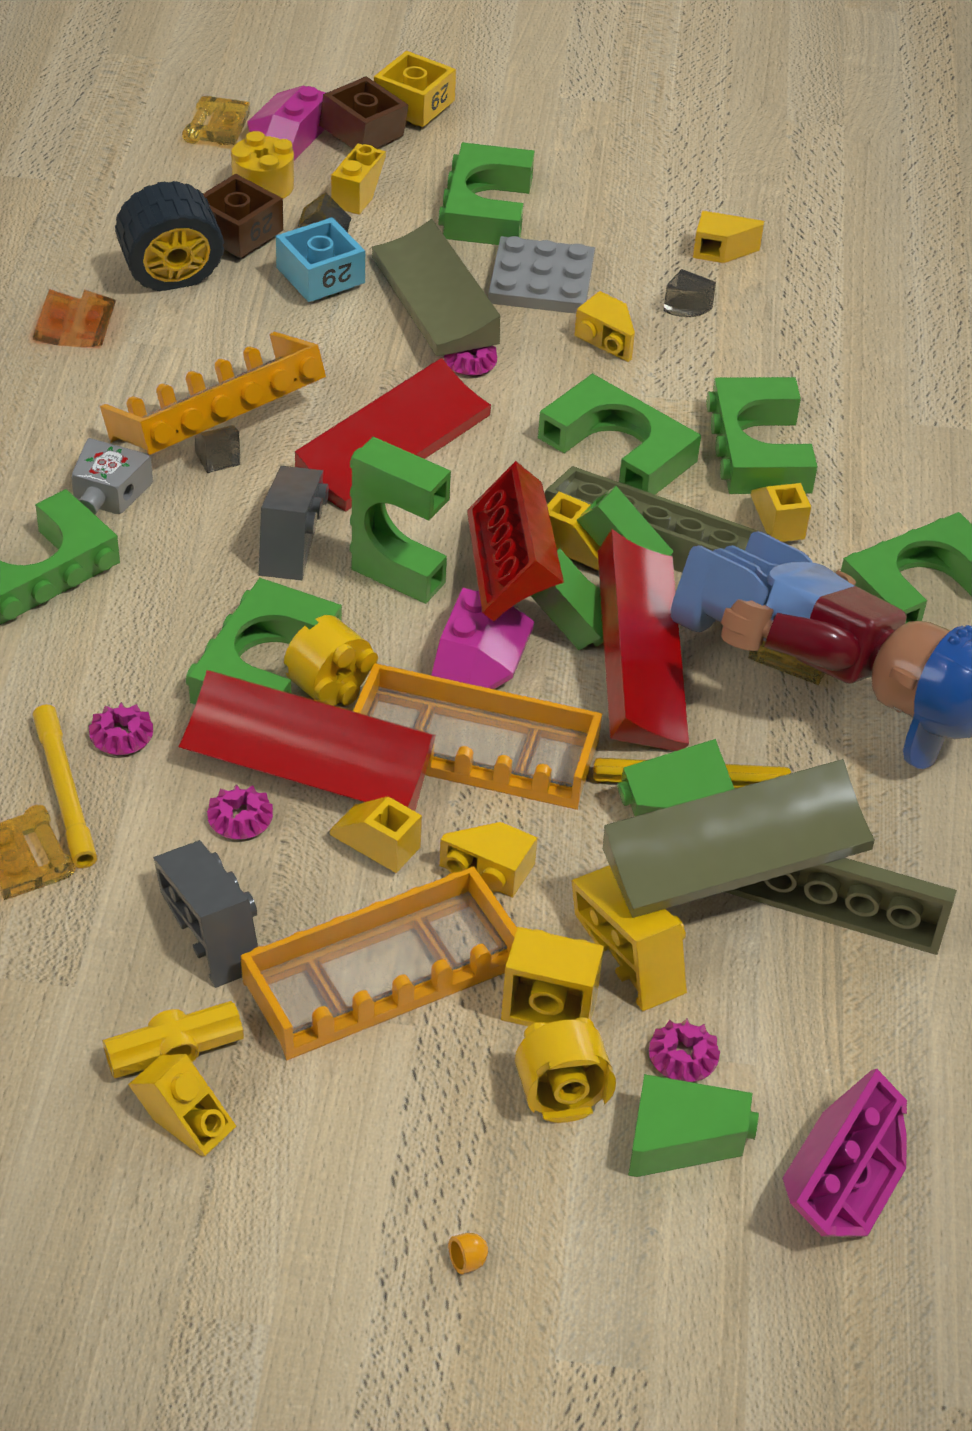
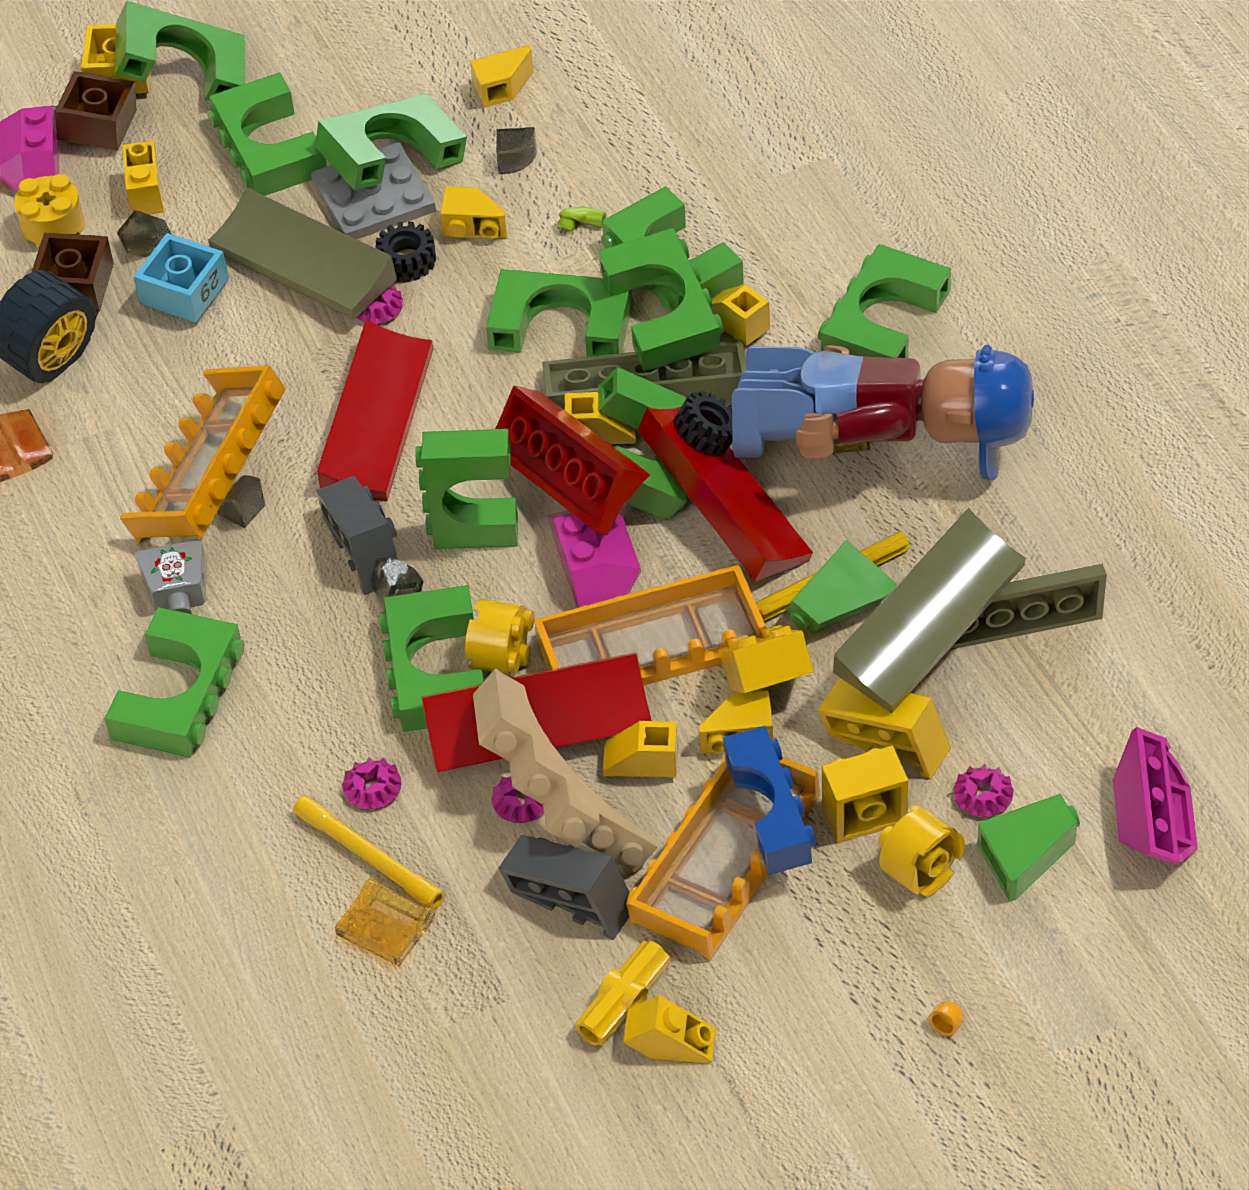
camera: 25 degrees left, 5 degrees up
(248, 793) = (538, 770): none -> tan arch
(287, 568) = (394, 578): none -> clear smoke brick
(431, 969) = (781, 833): none -> blue arch
(446, 68) = (145, 28): none -> bright green arch
(528, 328) = (408, 238): none -> black tyre
(555, 807) = (765, 660): none -> yellow brick
(618, 235) = (415, 120): none -> bright green arch
(658, 571) = (705, 423): none -> black tyre
(696, 366) = (580, 214): none -> lime arm
(721, 492) = (665, 262): none -> bright green arch

